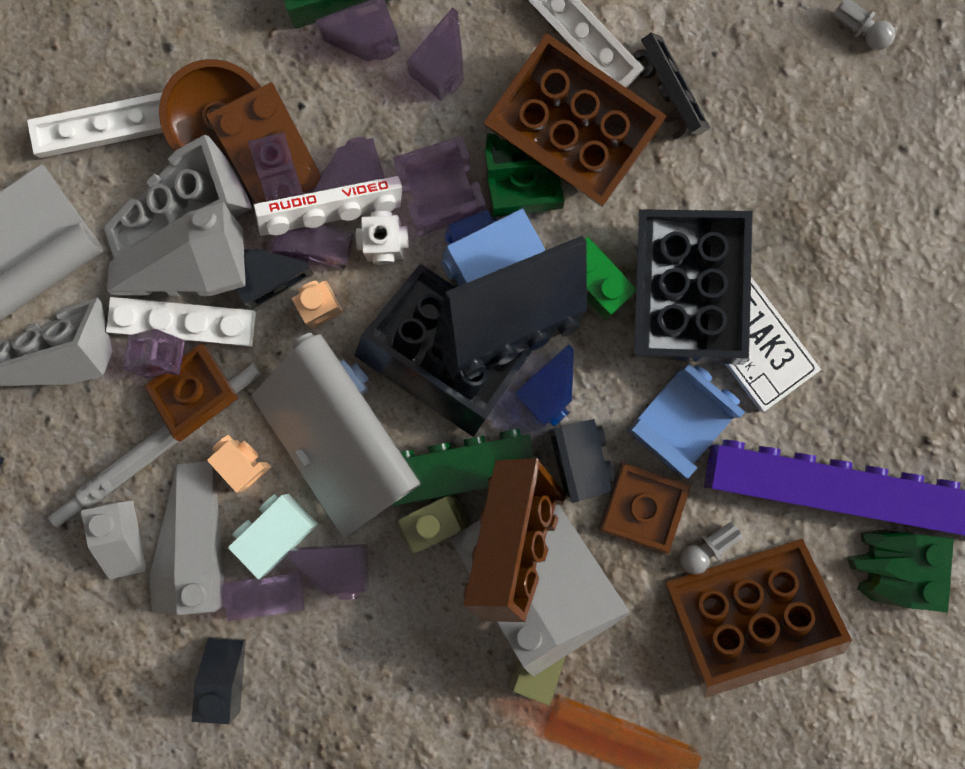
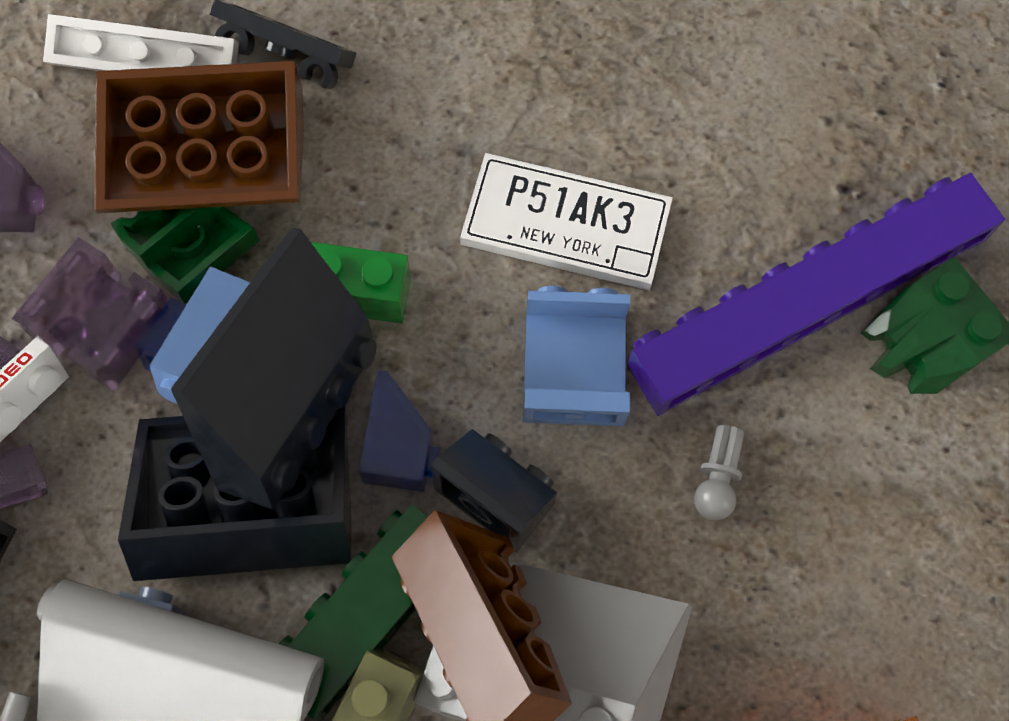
camera: 40 degrees left, 15 degrees down
(316, 303) = (34, 551): light nougat brick -> none
(385, 250) = (68, 421): white brick -> none
(644, 507) = (612, 489): reddish brown tile -> none
(694, 285) = (466, 207): black slope -> none
(756, 618) = (836, 510): reddish brown slope -> none

